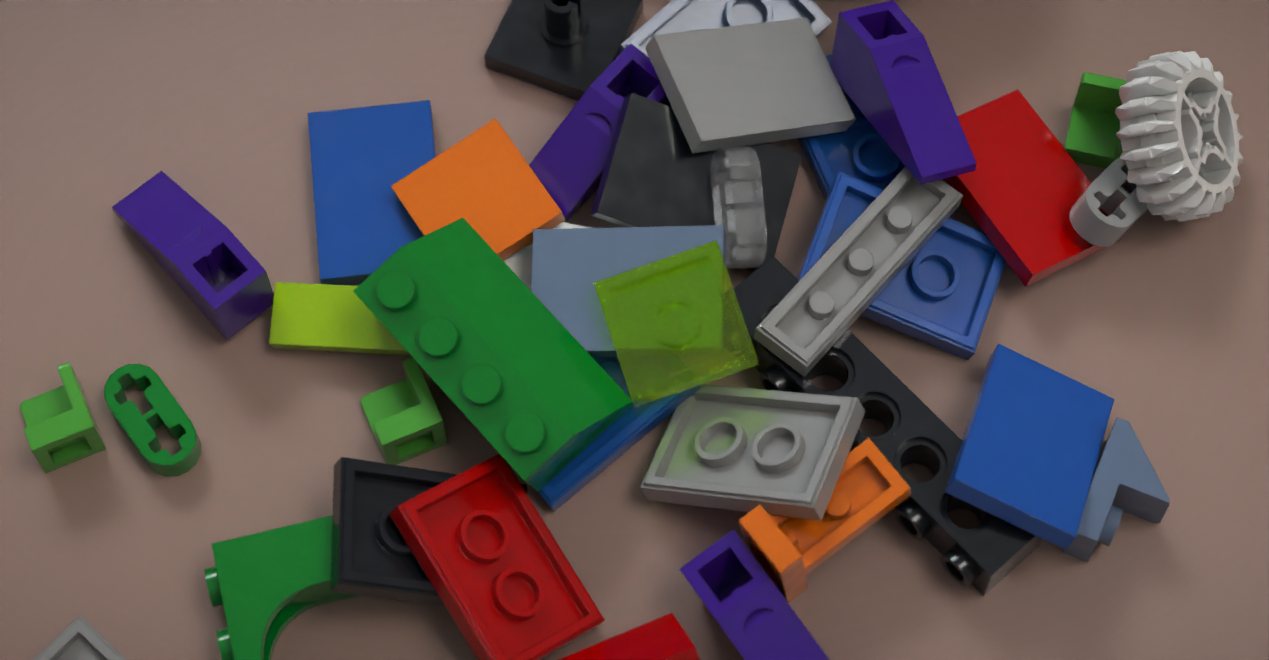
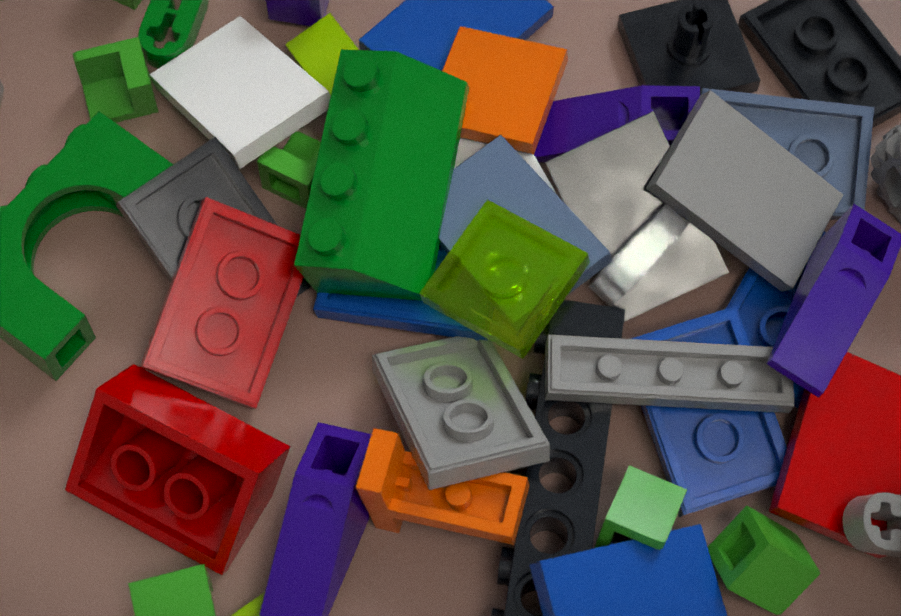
camera: 50 degrees right, 0 degrees up
(181, 513) = (116, 80): none -> bright green panel
(290, 410) = (241, 91): none -> white tile
(954, 377) = (642, 509): none -> bright green panel
(1061, 323) = (762, 561): none -> bright green panel

